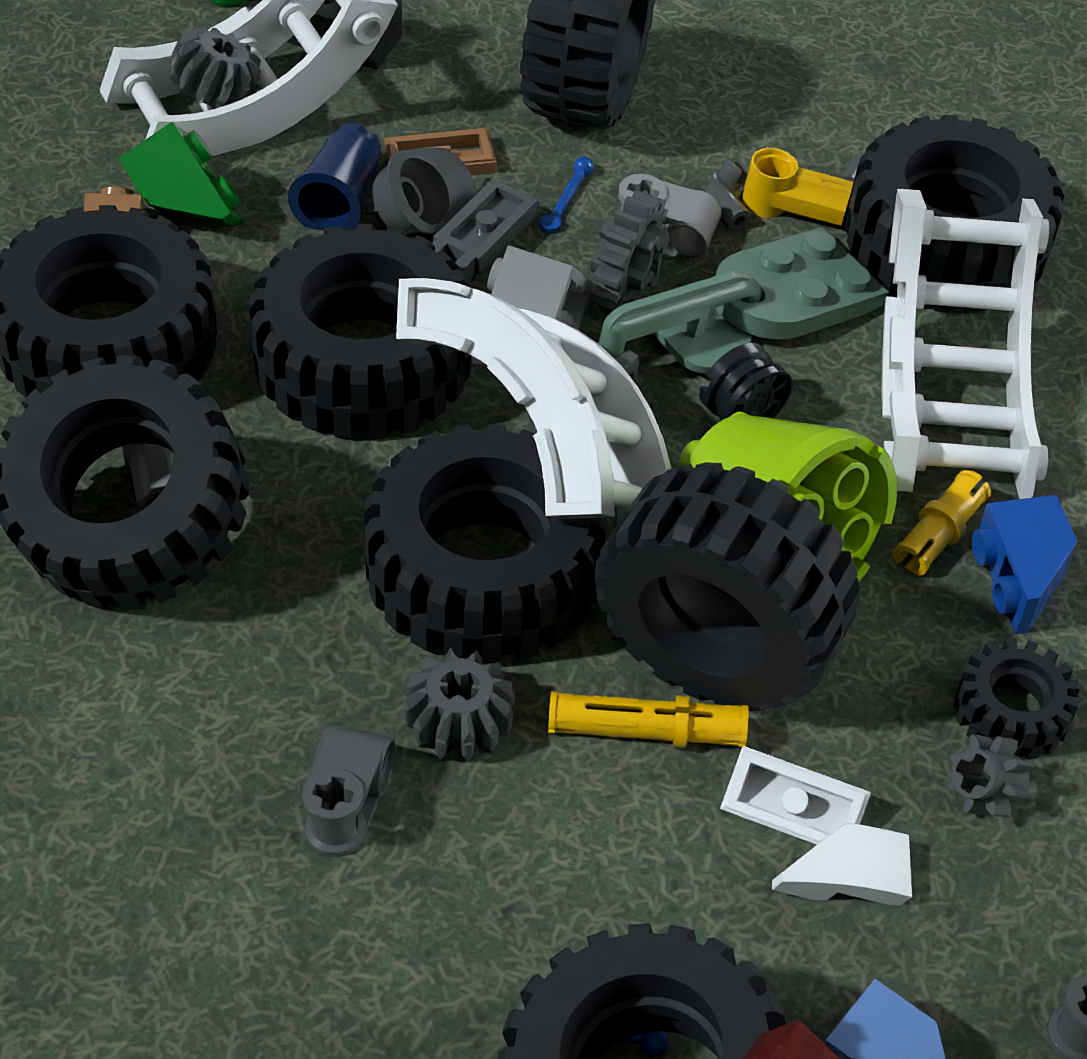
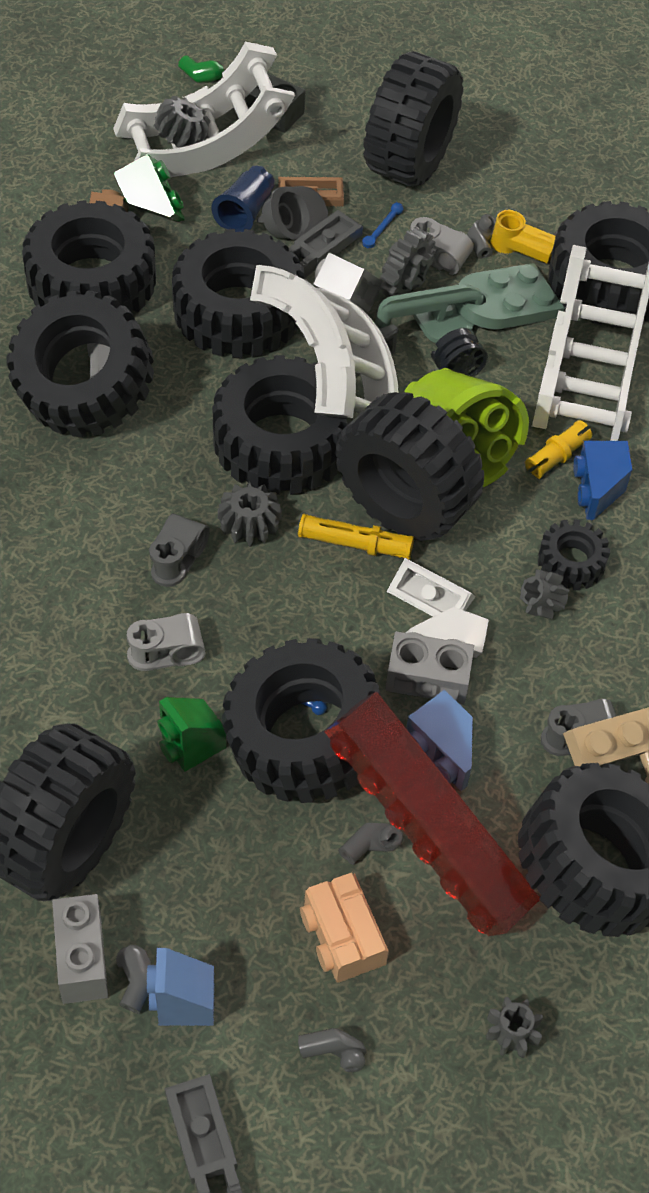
camera: 10 degrees right, 5 degrees up
(363, 961) = (168, 640): none -> light grey piece
(834, 953) = (428, 675): none -> light grey brick

